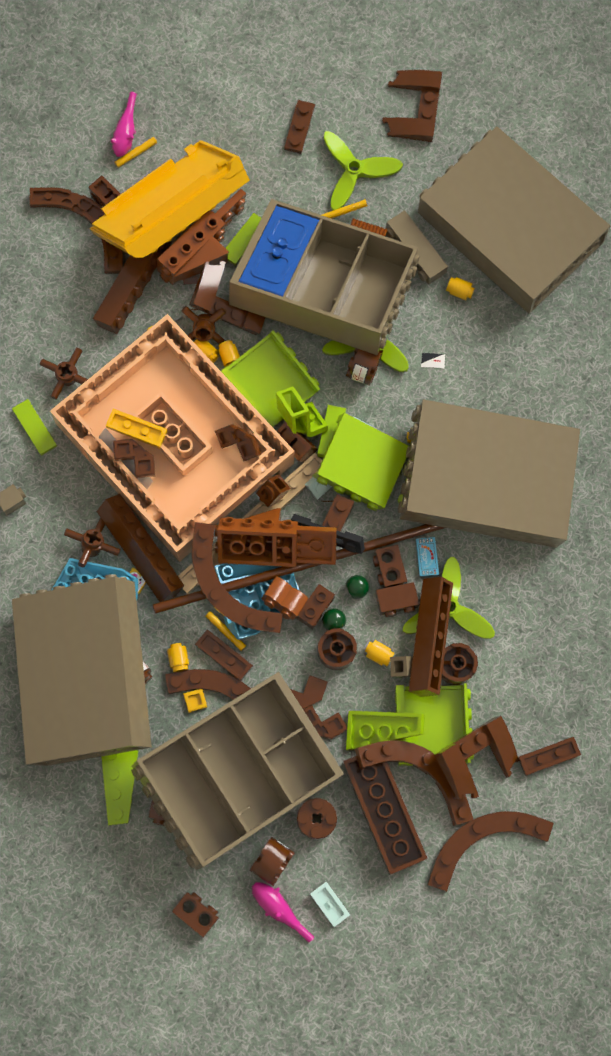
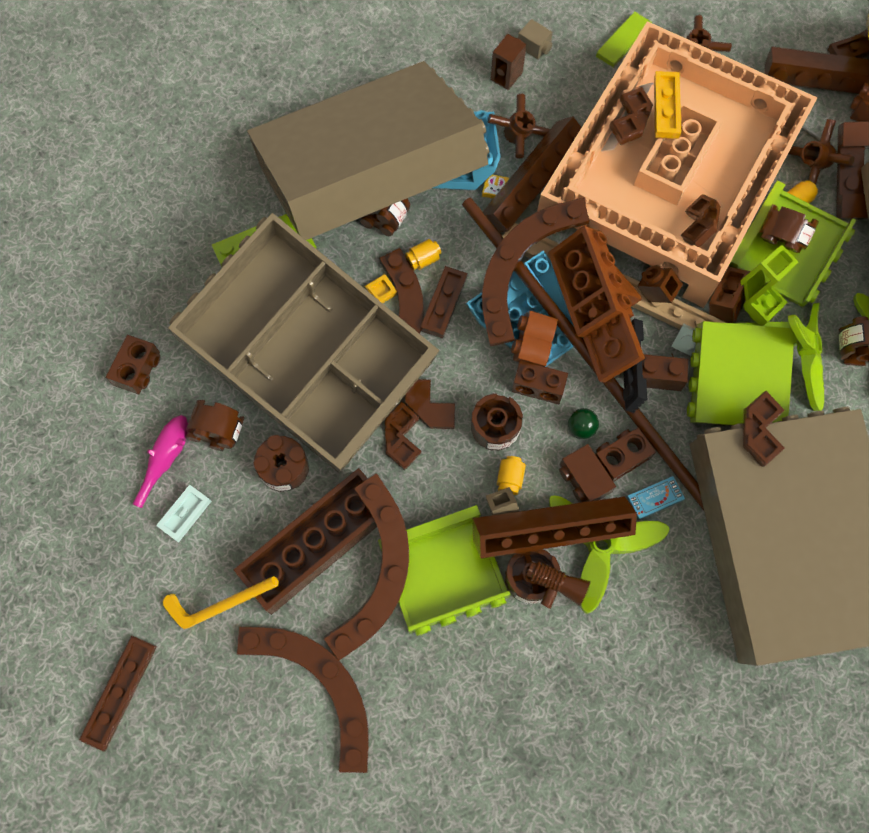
camera: 75 degrees right, 5 degrees down
(29, 530) = (508, 61): none -> reddish brown brick
(208, 349) = (791, 170): yellow brick -> none
(225, 631) = (477, 289): yellow piece -> none
(262, 380) = (789, 228): none -> reddish brown brick
(333, 619) = (533, 409): dark green piece -> none
(355, 406) = (810, 349): none -> lime piece
(375, 727) = (418, 504): lime wing -> none
(407, 470) = (756, 437): none -> reddish brown tile
(411, 922) = (186, 621): none -> yellow piece
(447, 985) = (117, 693): none -> reddish brown tile
(454, 755) = (457, 648): reddish brown wedge -> none
(471, 648) = (557, 581): none -> reddish brown piece
(549, 756) = (454, 739): reddish brown plate -> none

